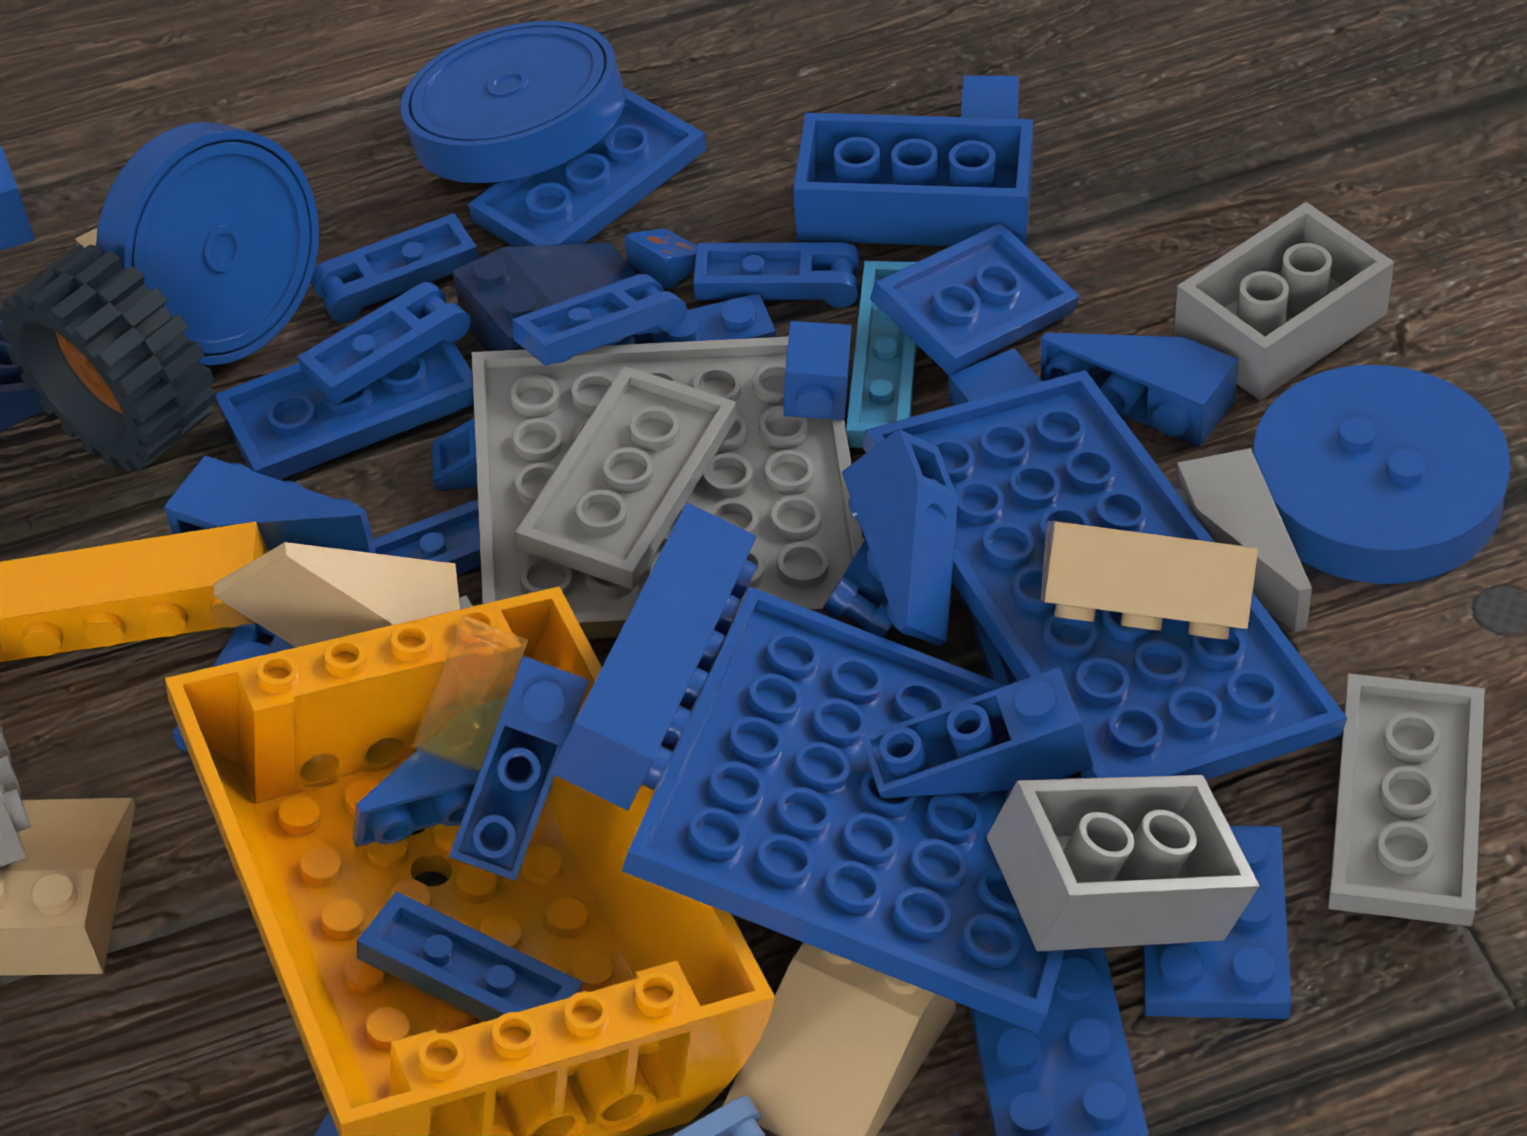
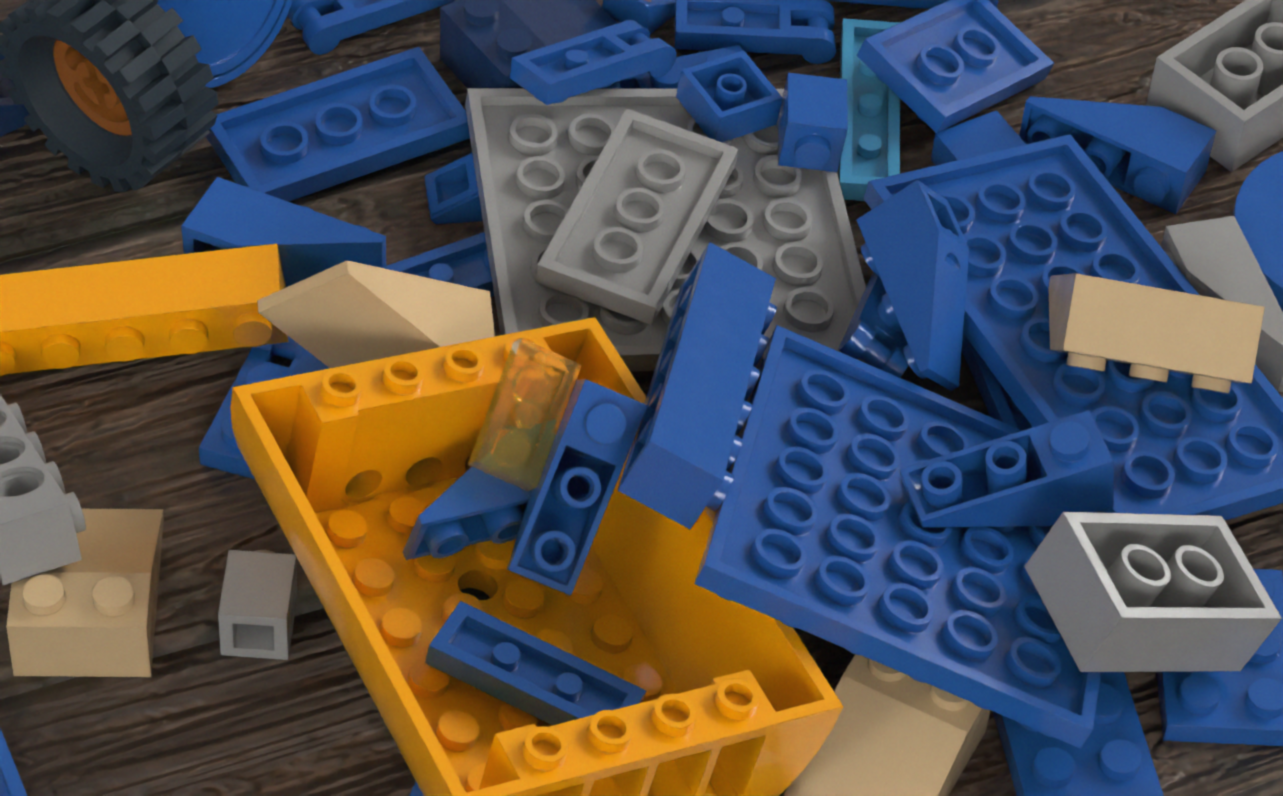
camera: 10 degrees left, 0 degrees up
(205, 899) = (258, 604): none -> light grey brick
(383, 341) = (375, 74): blue plate -> none
(735, 348) = (729, 97): none -> blue piece

